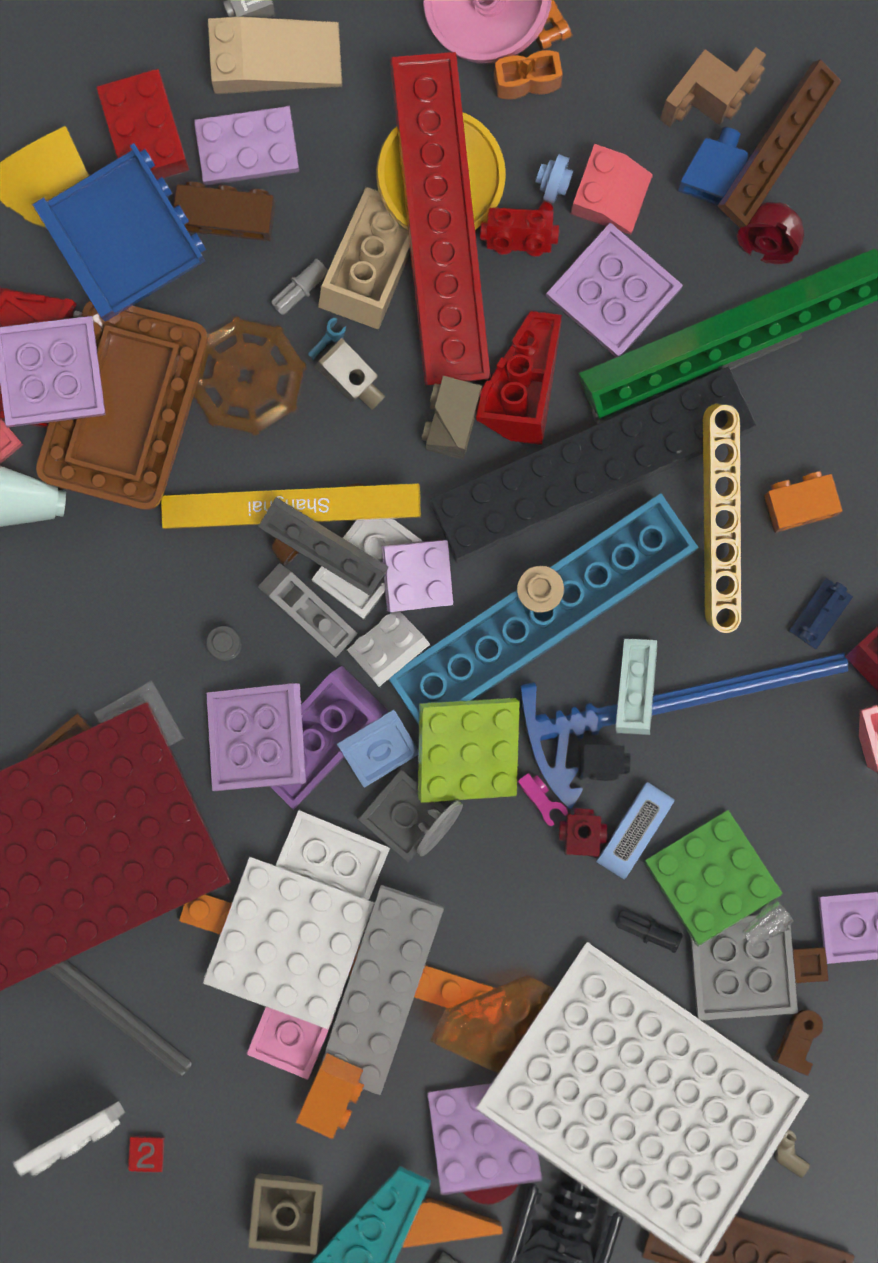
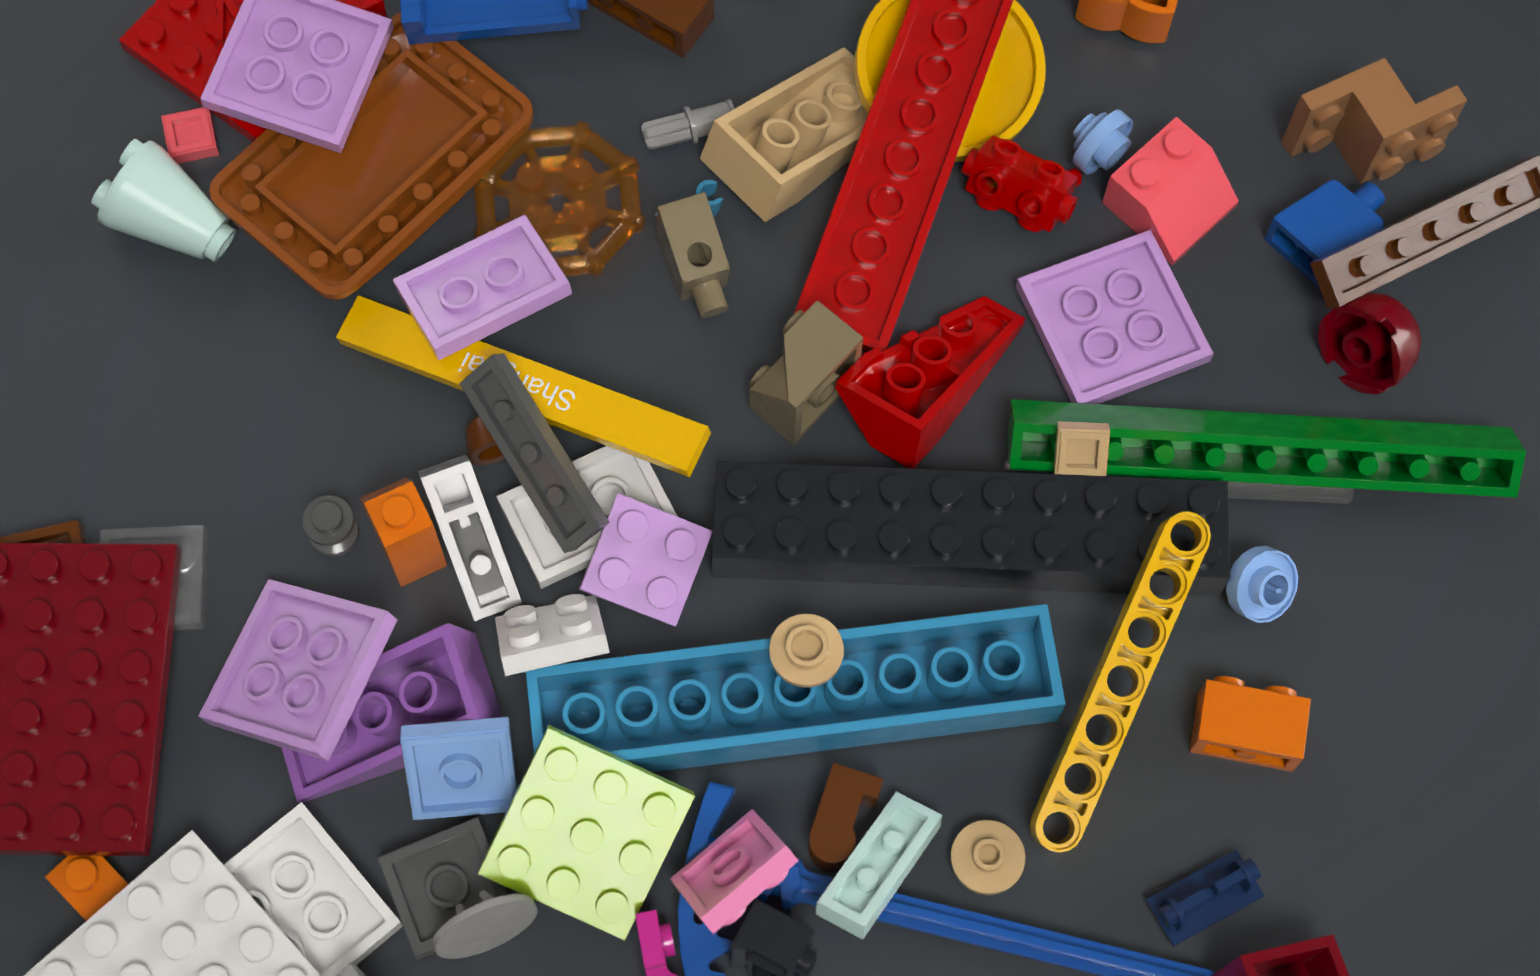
camera: 25 degrees right, 15 degrees down
(236, 458) = (482, 287): none -> lavender plate
(266, 624) = (404, 530): none -> orange slope
(563, 733) = (734, 871): none -> bright pink plate
(600, 680) = (832, 831): none -> reddish brown leg
(637, 389) = (1081, 448): none -> tan tile
(692, 650) = (987, 857): none -> tan piece
(773, 416) = (1262, 584): none -> light blue plate

